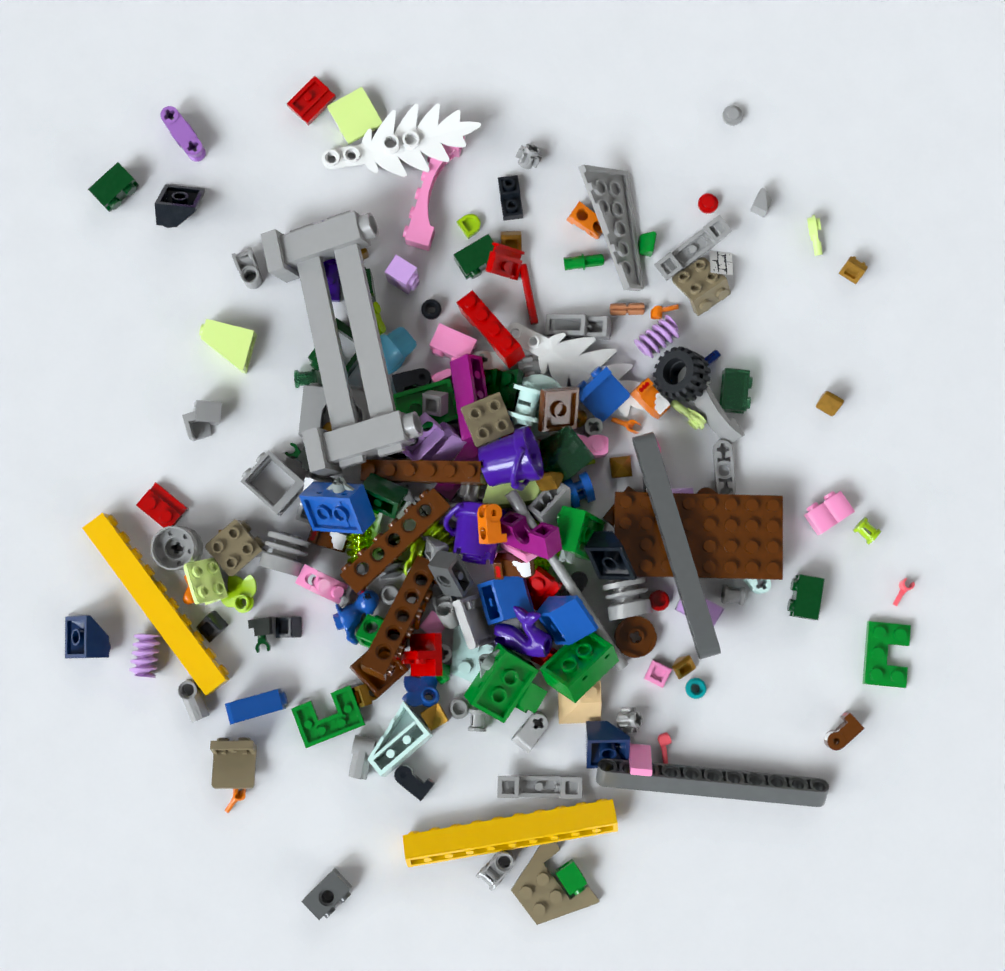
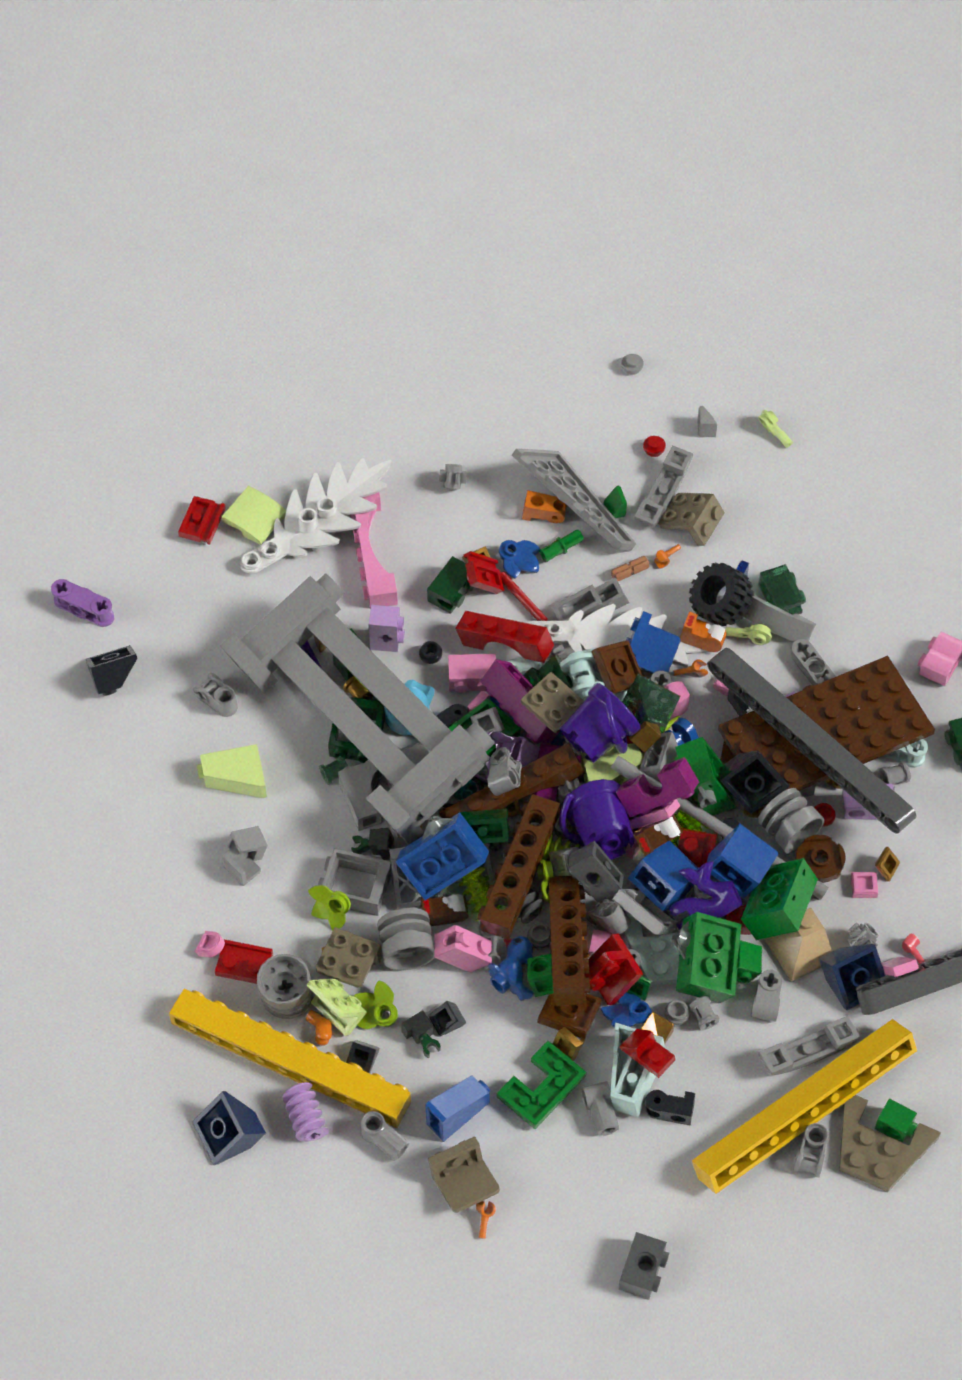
camera: 25 degrees left, 25 degrees down
(114, 187) = (33, 681): dark green brick -> none
(143, 481) = (210, 944): none -> bright pink tile
(247, 498) = (330, 905): none -> lime plate
(410, 741) = (648, 1052): none -> red slope
(418, 463) = (503, 772): none -> light grey piece
(469, 224) = (426, 563): lime tile -> none
(489, 524) = (613, 792): orange leg -> none
(510, 197) = (454, 522): black slope -> none
(546, 258) = (521, 559): none -> blue plate
(620, 467) = (709, 712): pearl gold slope -> none
(657, 336) = (676, 577): lavender piece -> none
(702, 688) = (911, 873): teal plate -> none
(721, 263) = (699, 487): white sticker -> none
(829, 403) = (881, 563): pearl gold slope -> none
(853, 269) = (830, 441): pearl gold tile -> none

